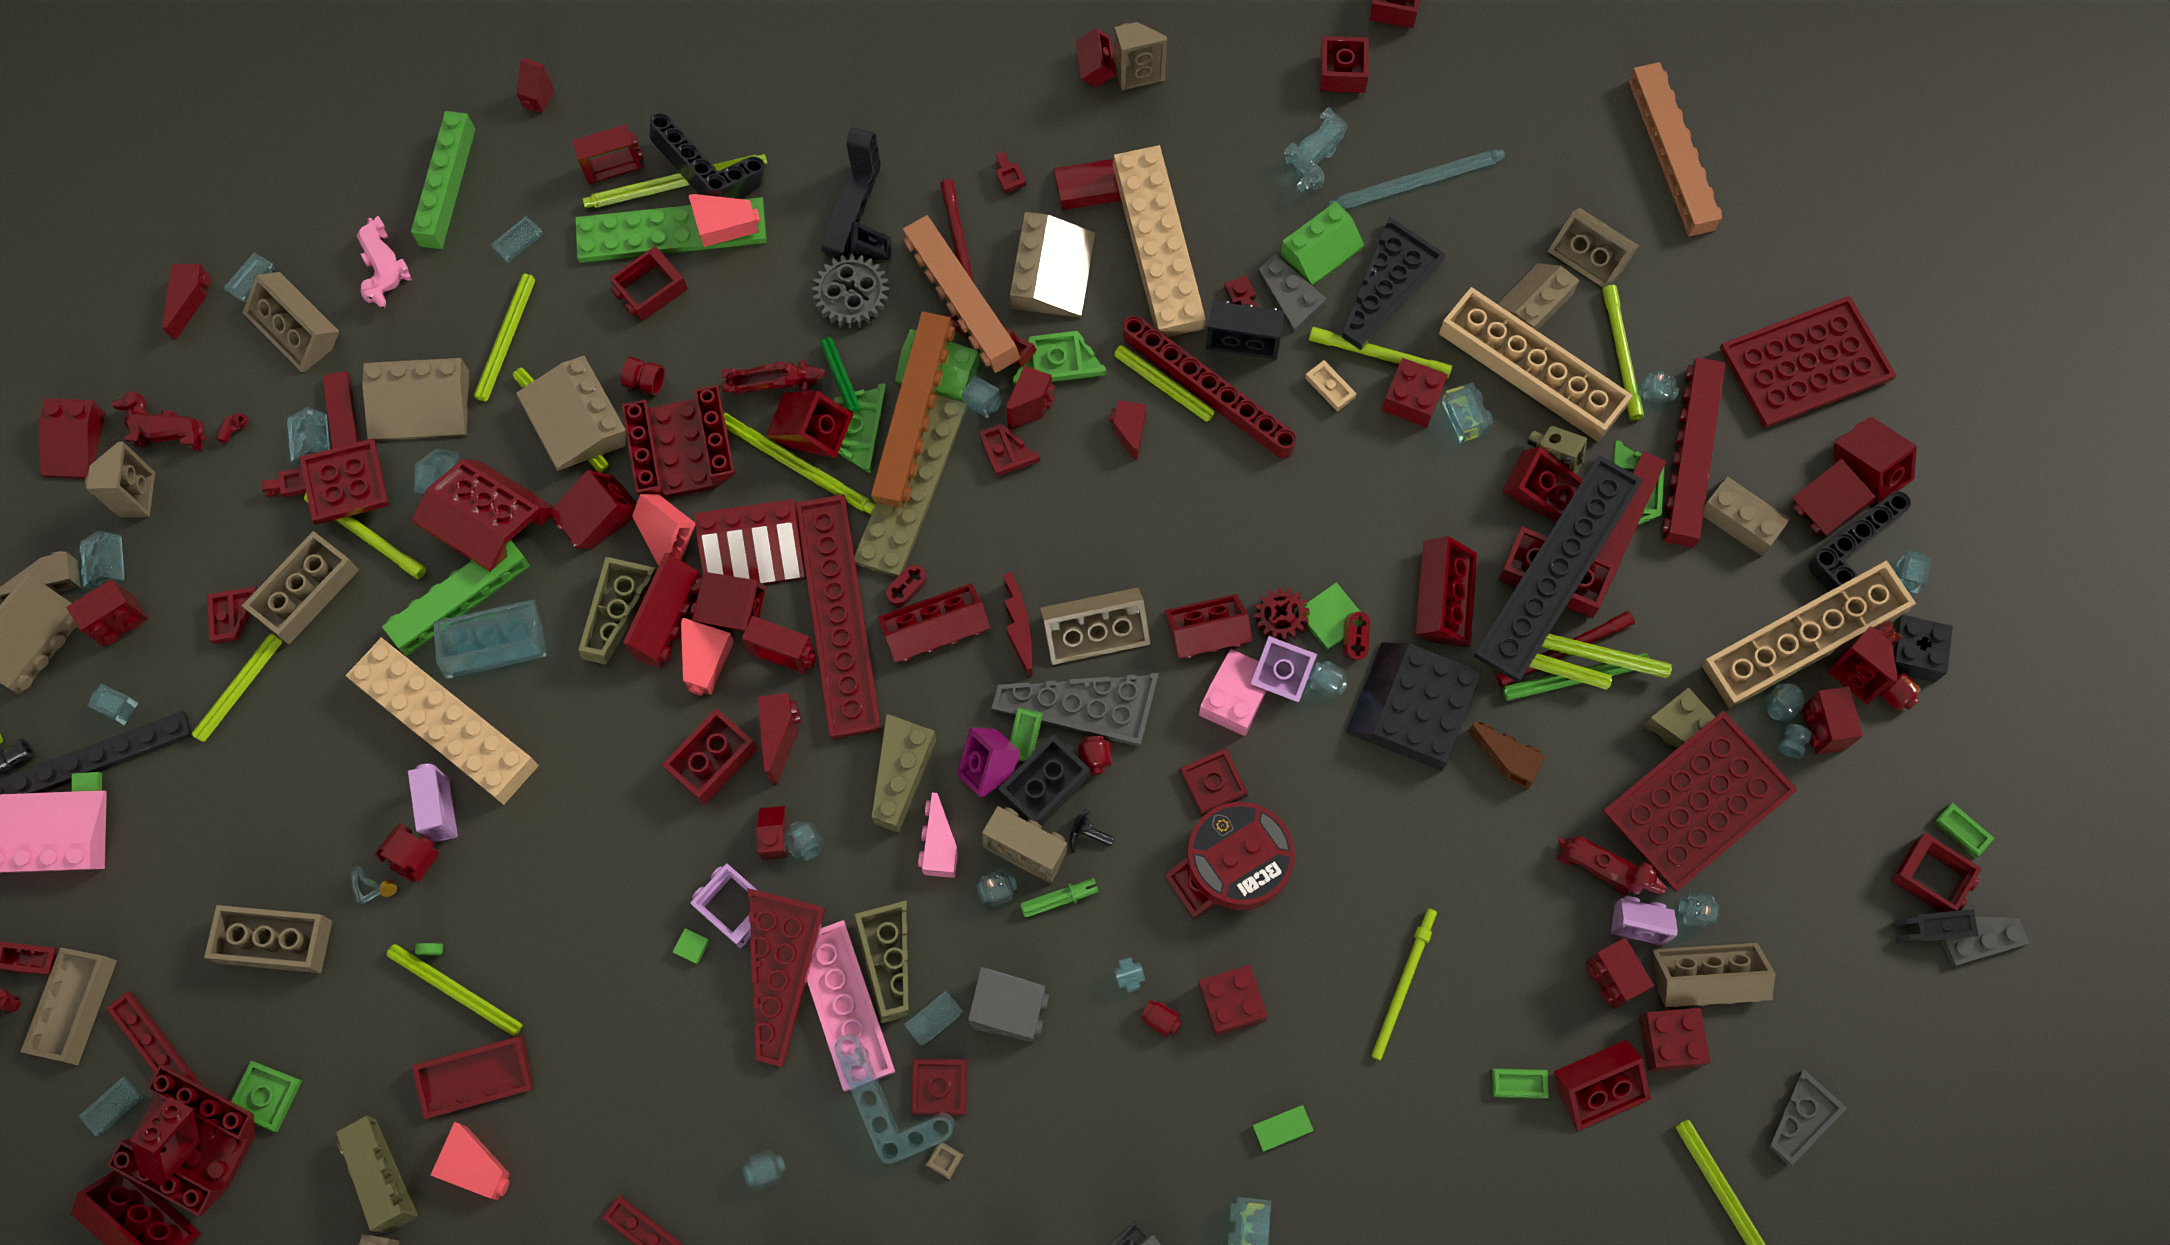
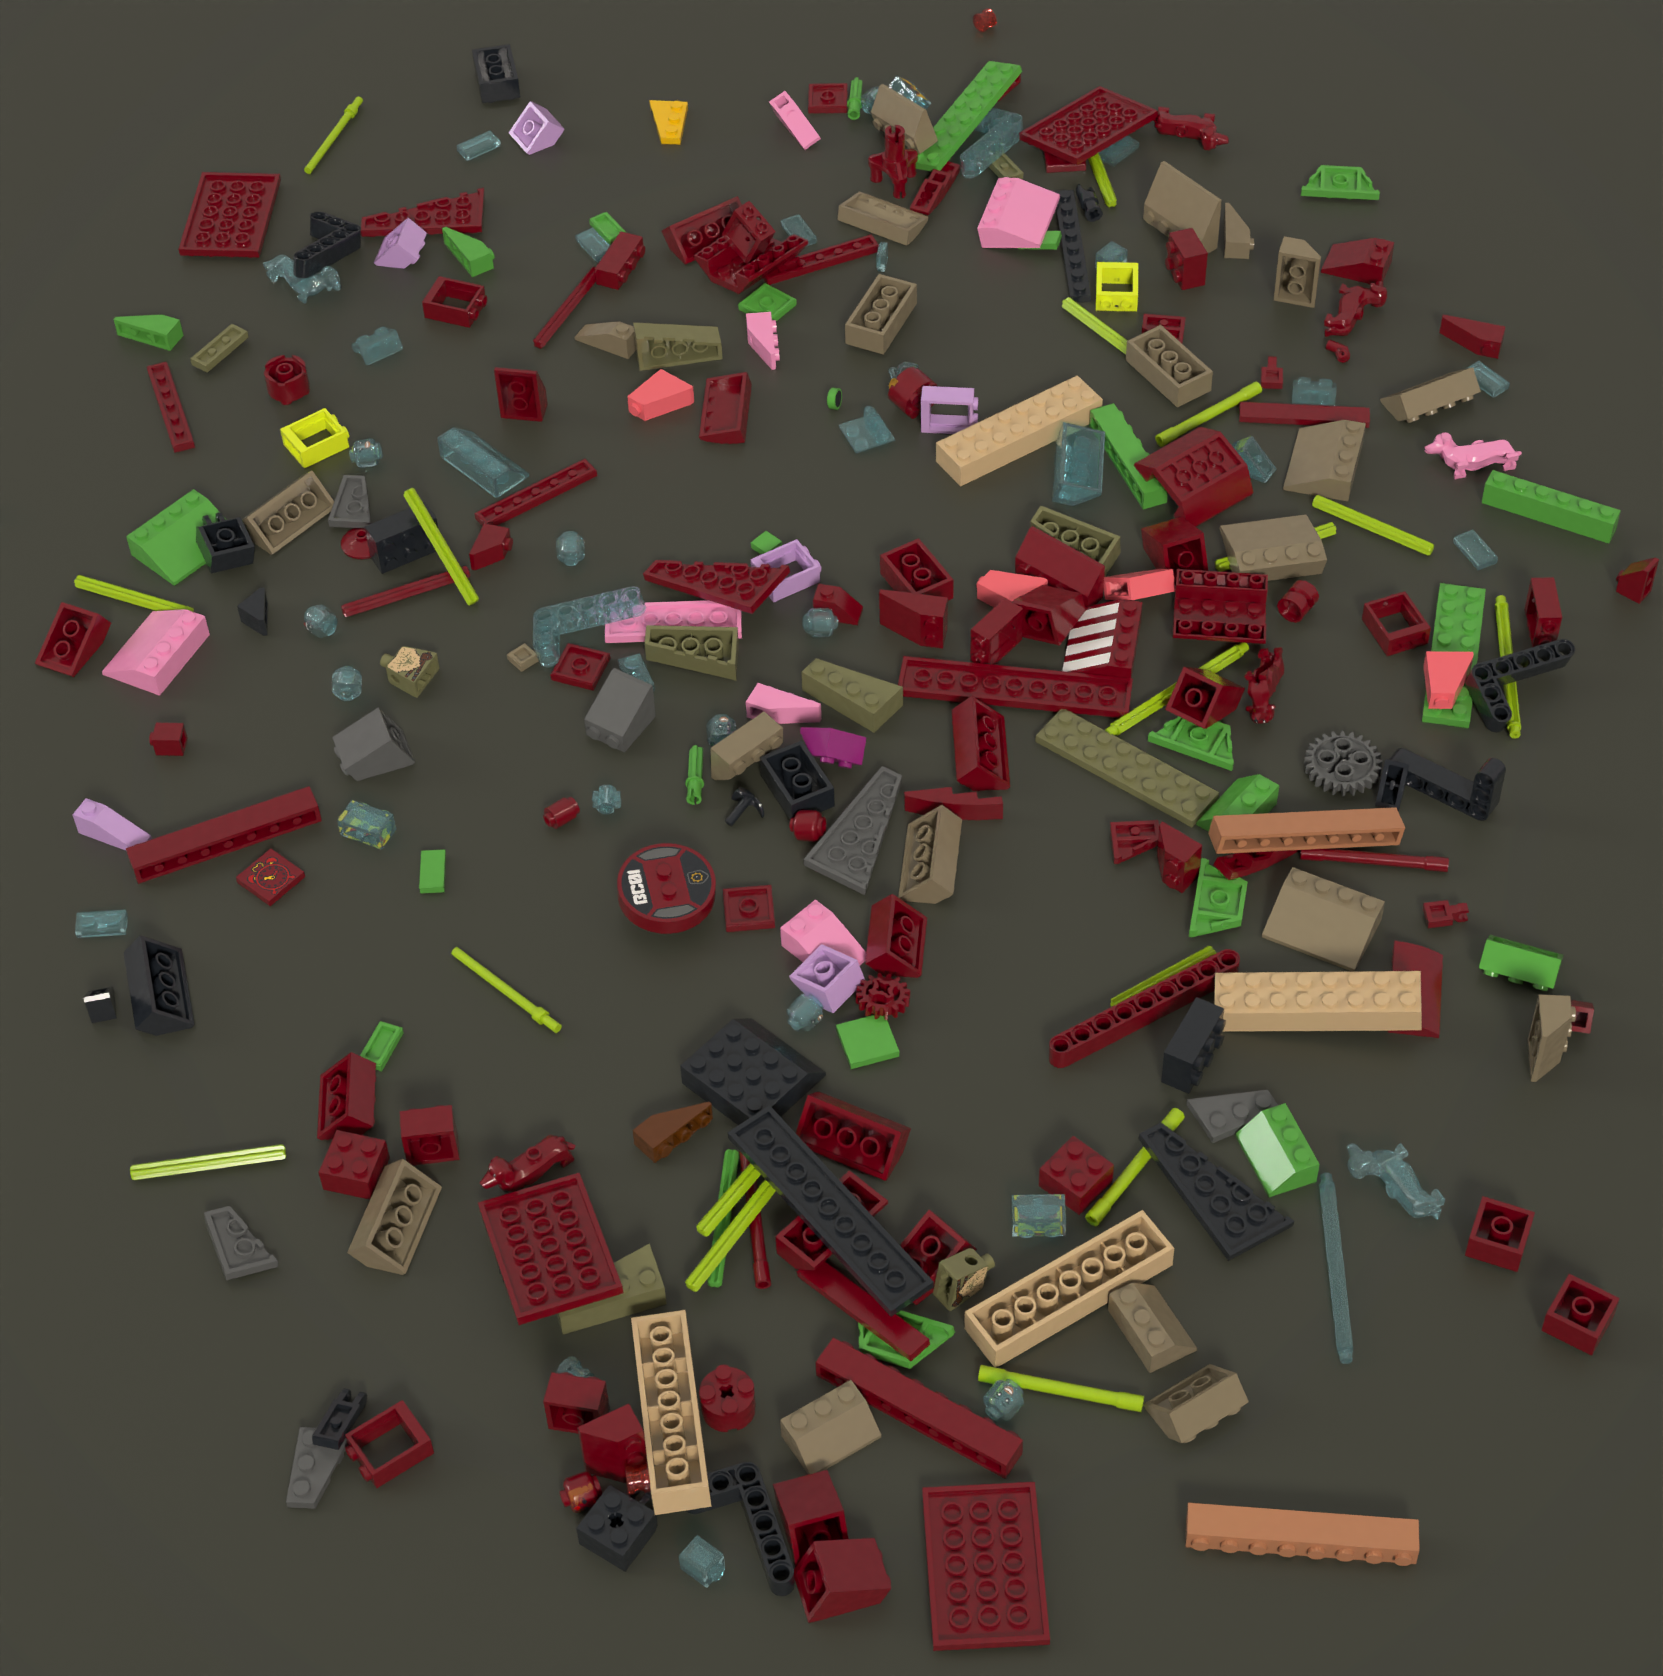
camera: 110 degrees right, 20 degrees down
(101, 558) = (1241, 268): clear light blue bracket -> none
(137, 686) = (1116, 274): none -> neon yellow window
(152, 977) = (882, 256): none -> clear light blue tile
(331, 1078) = (761, 337): none -> bright pink slope
(344, 481) = (1257, 401): dark red plate -> none
(454, 990) = (794, 410): lime axle -> none
(476, 895) = (867, 431): none -> clear light blue hinge
(840, 375) = (1252, 733): green axle -> none
(902, 582) = (1021, 742): dark red beam -> none
(912, 410) = (1190, 762): dark orange brick -> none
(981, 397) = (1196, 827): clear light blue brick -> none
(1026, 731) = (850, 783): bright green tile -> none
(1043, 103) = (1520, 962): none -> bright green slope
(1128, 425) = (1122, 934): dark red slope -> none
(1232, 1000) = (550, 861): dark red brick -> none
(1240, 291) = (1245, 1070): dark red plate -> none
(1330, 385) = (1111, 1110): tan plate -> none
(1356, 635) = (839, 1042): dark red beam -> none
(1643, 921) = (461, 1174): lavender slope -> none
(1698, 909) = (456, 1228): clear light blue head -> none
(1760, 601) = (727, 1399): none -> dark red brick
(1785, 701) = (619, 1379): clear light blue head -> none
(1964, 830) = (420, 1497): bright green tile -> none

